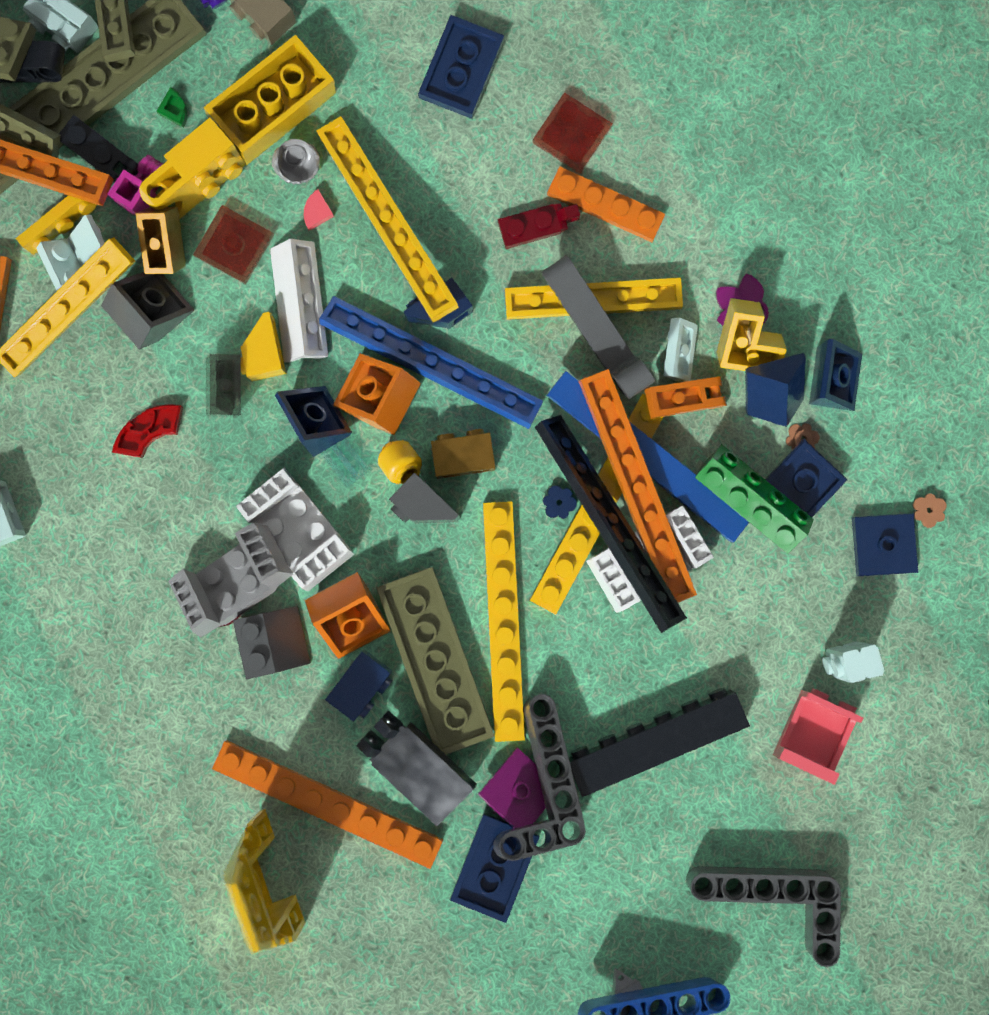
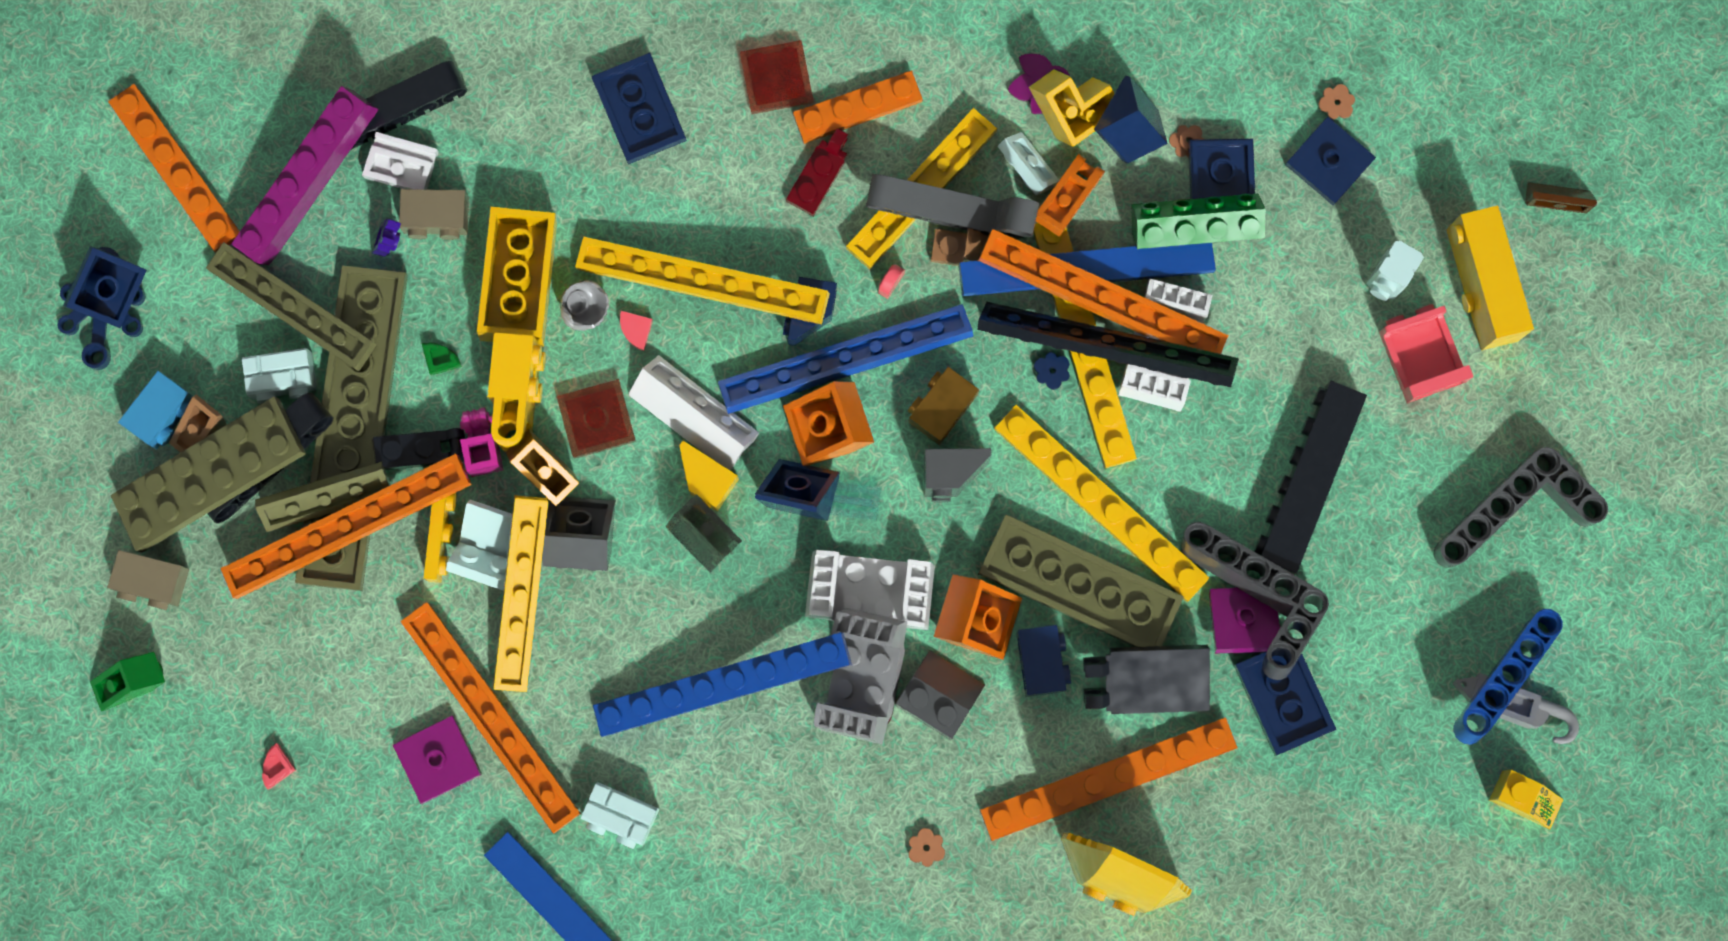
camera: 45 degrees left, 5 degrees down
(137, 497) = (722, 684): none -> blue plate
(146, 428) = (670, 631): red tile -> none
(159, 727) = (935, 852): none -> nougat plant
(399, 461) = (900, 458): yellow head -> none
(512, 339) = (890, 280): none -> coral tile
(577, 359) = (957, 247): none -> medium nougat slope
(835, 376) = (1165, 69): dark blue slope -> none
(914, 730) = (1489, 278): none -> yellow brick

